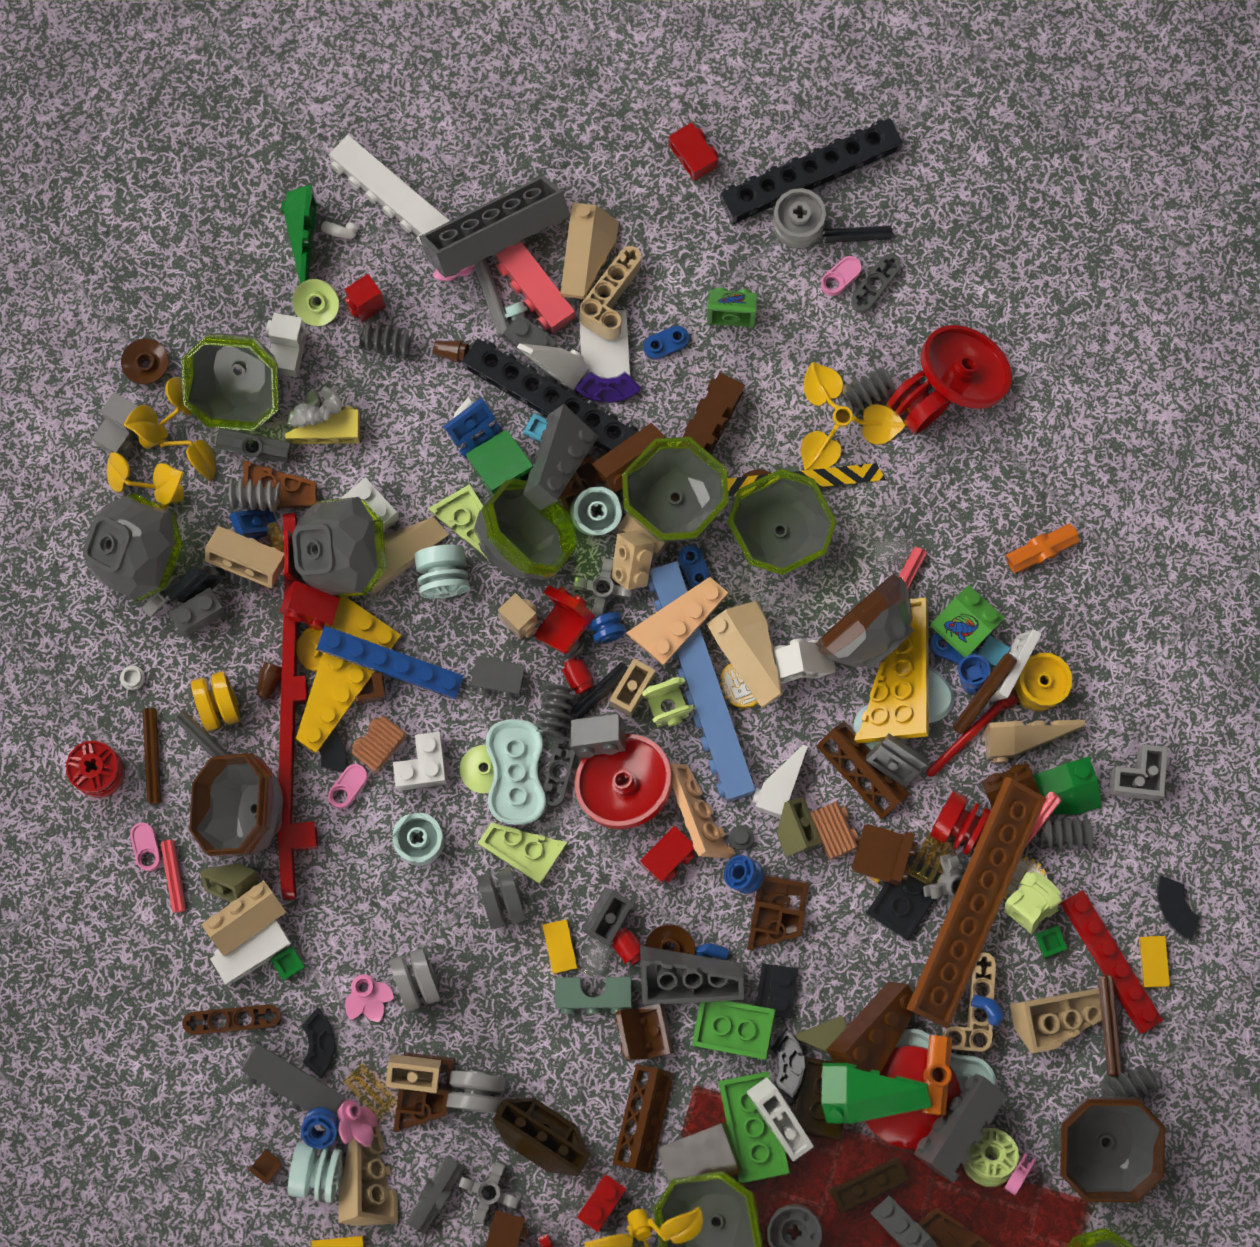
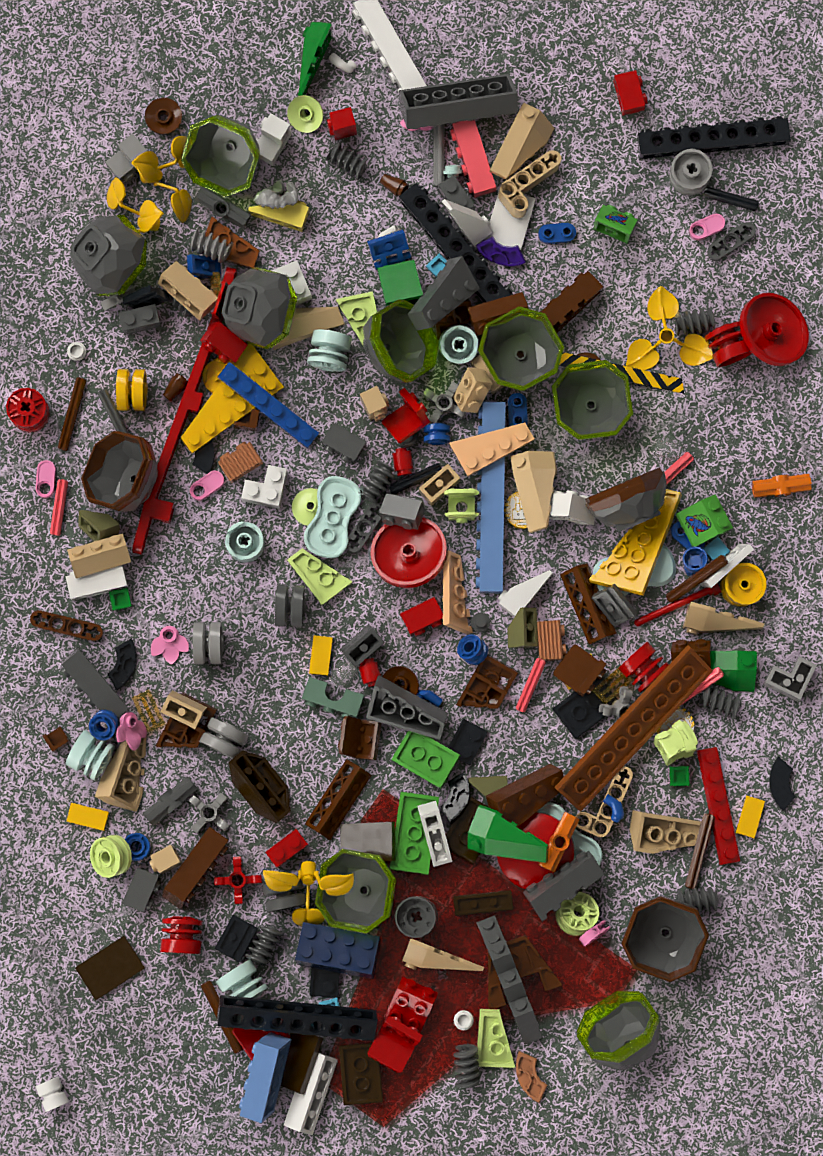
camera: 20 degrees right, 5 degrees up
(830, 893) = (530, 685): none -> coral axle

